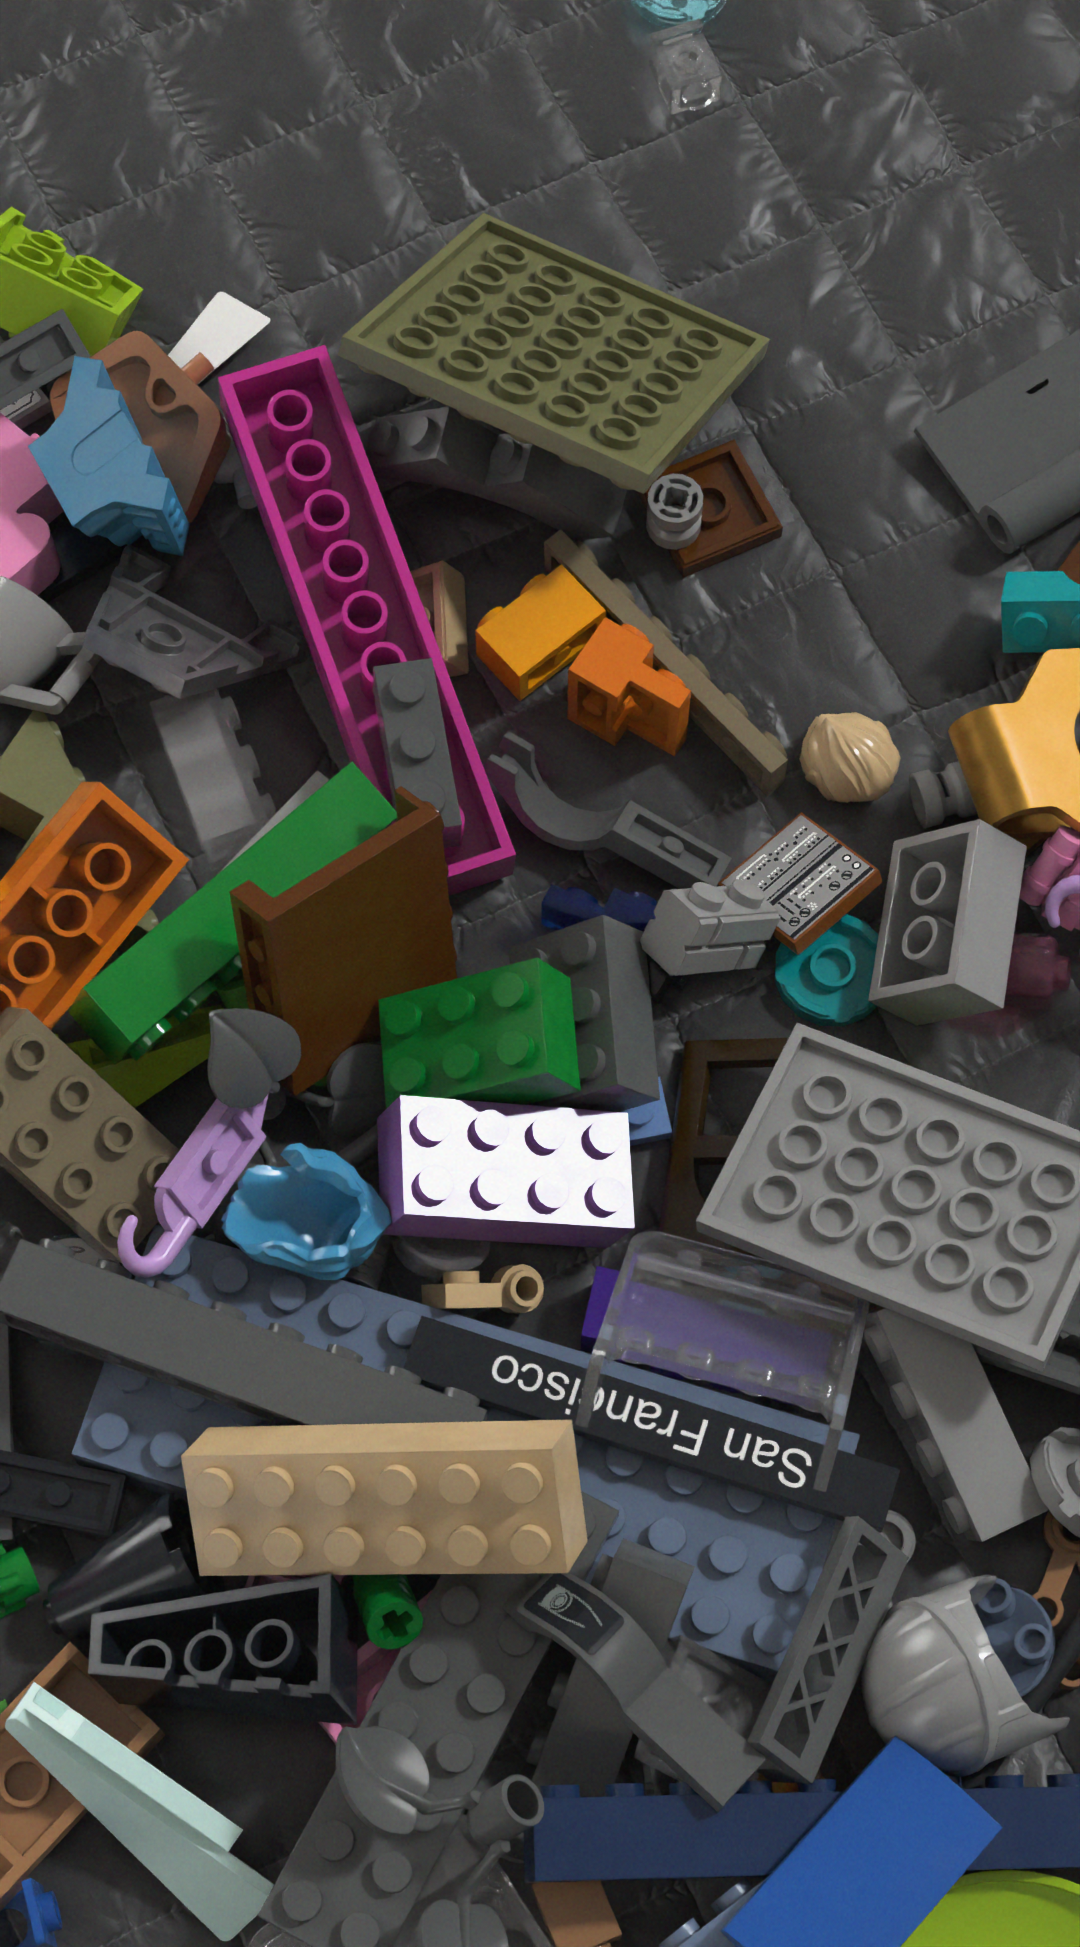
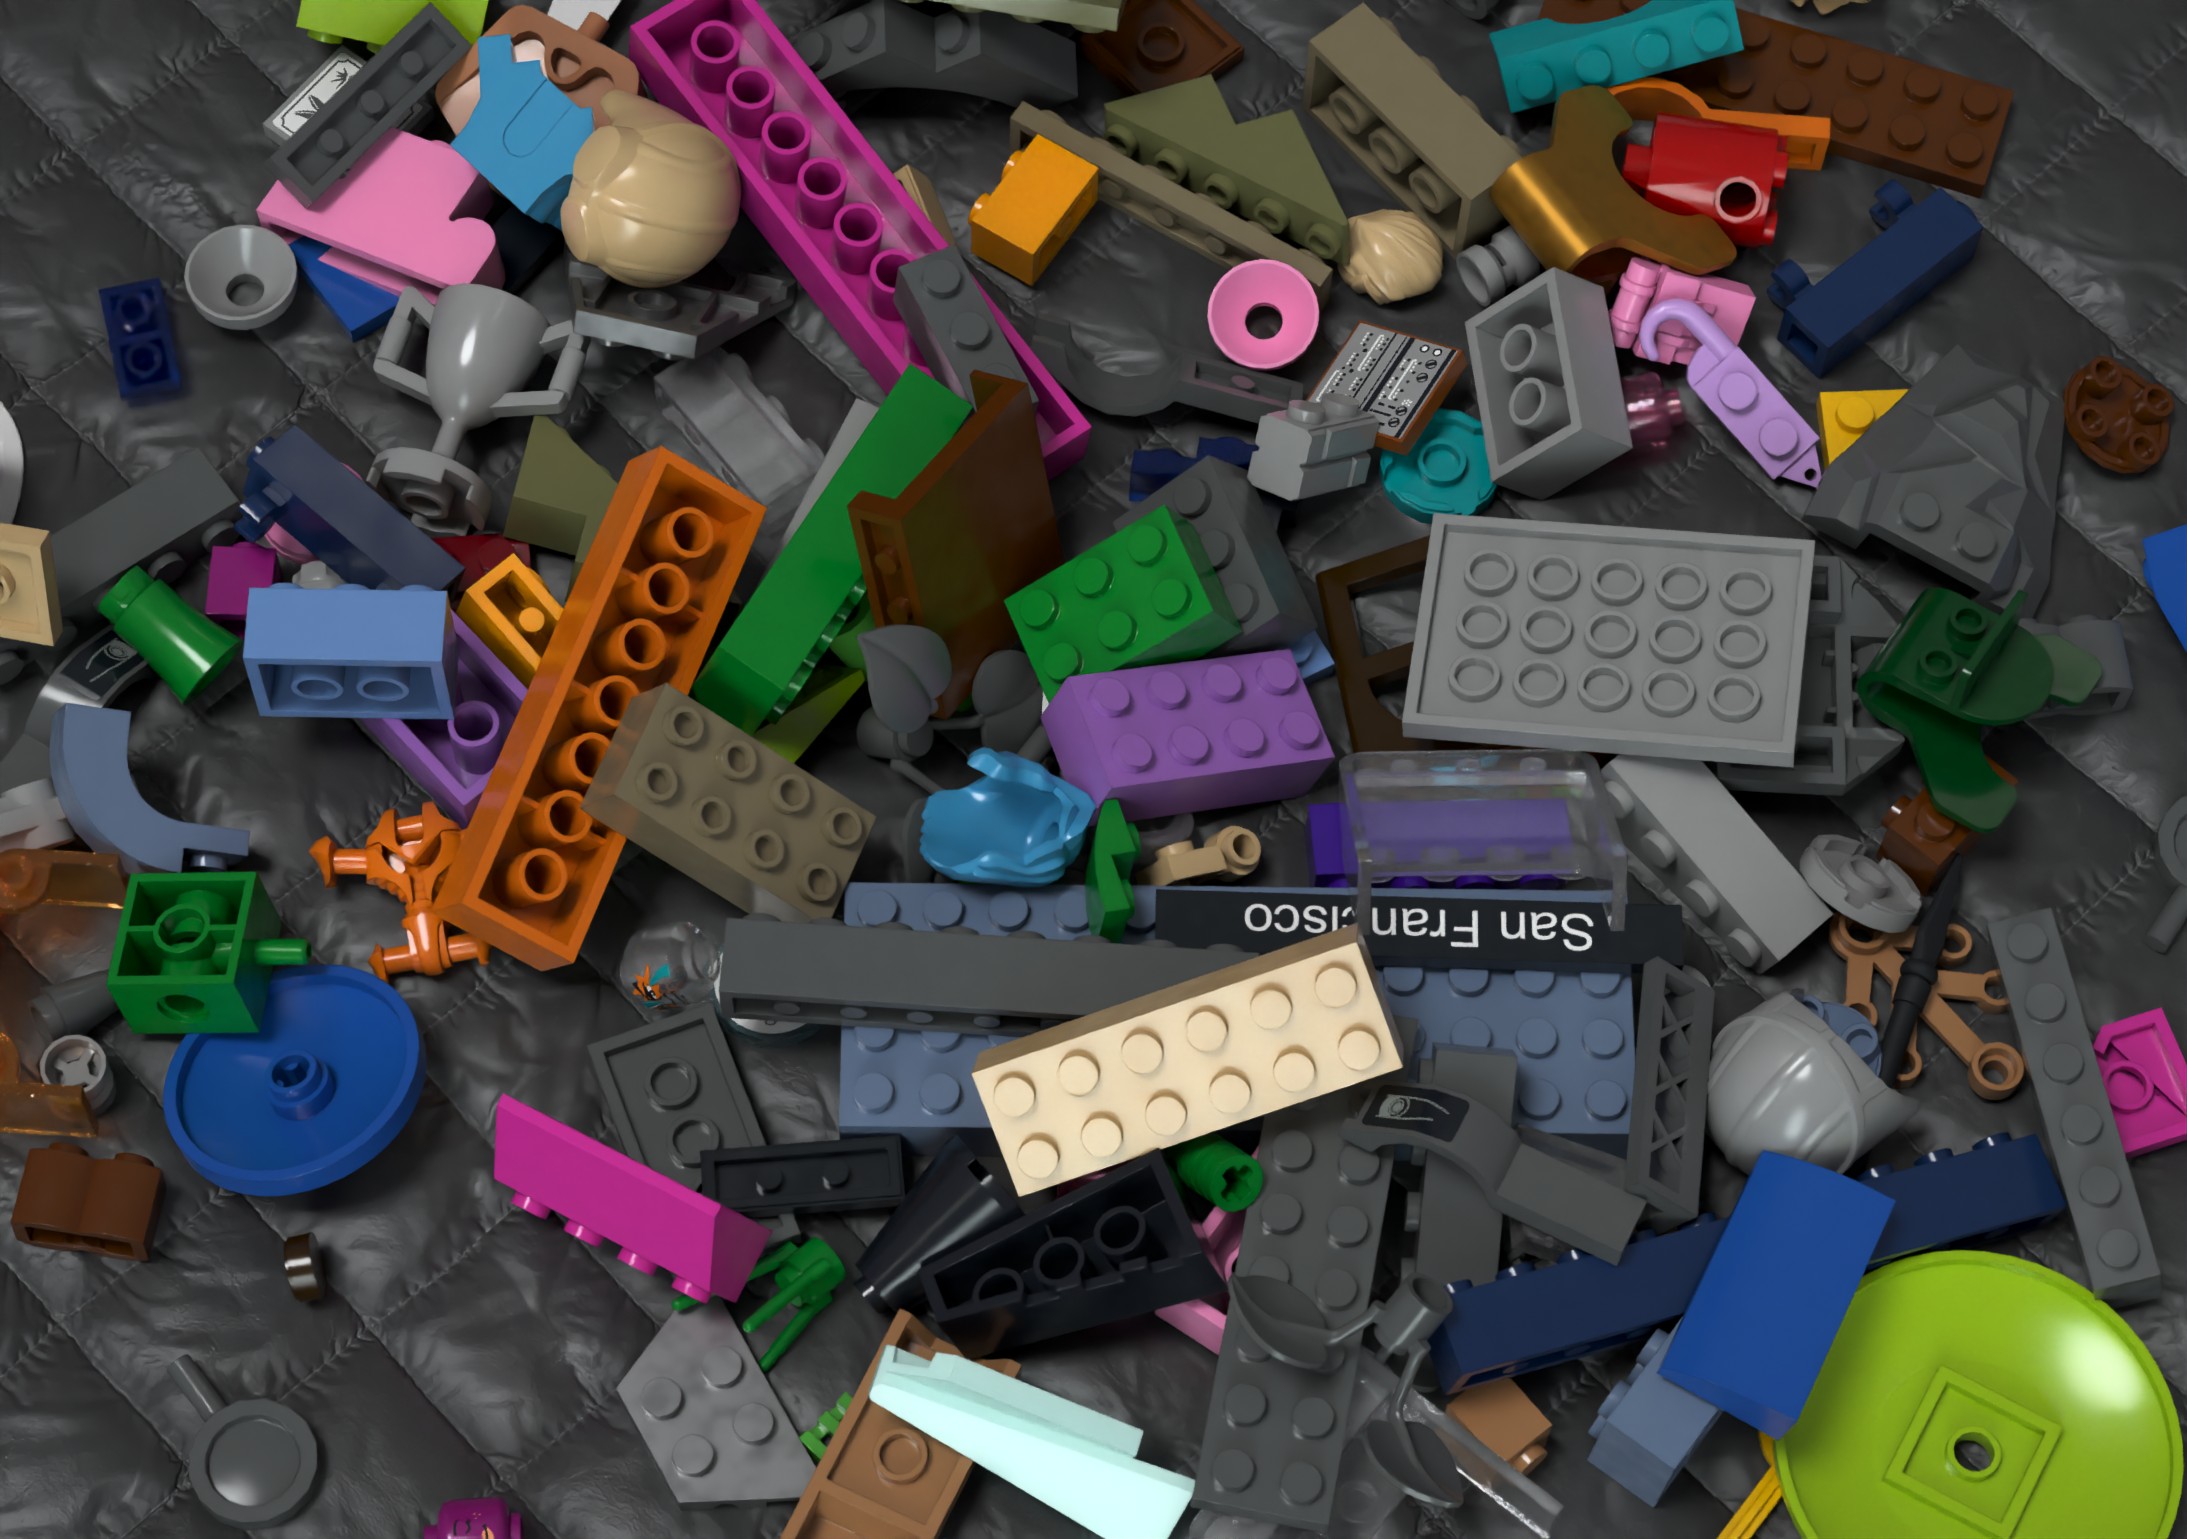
camera: 20 degrees left, 5 degrees down
(186, 536) = (650, 194): none -> tan piece
(195, 1183) = (881, 821): lavender plate -> none
(385, 1285) = (1107, 875): none -> green slope
(619, 690) = (1148, 244): orange brick -> none
(666, 521) = (1133, 56): light grey wheel -> none
(691, 765) = (1257, 285): none -> bright pink piece
(746, 643) = (1247, 167): none -> olive slope
(900, 642) = (1407, 127): none -> dark tan brick

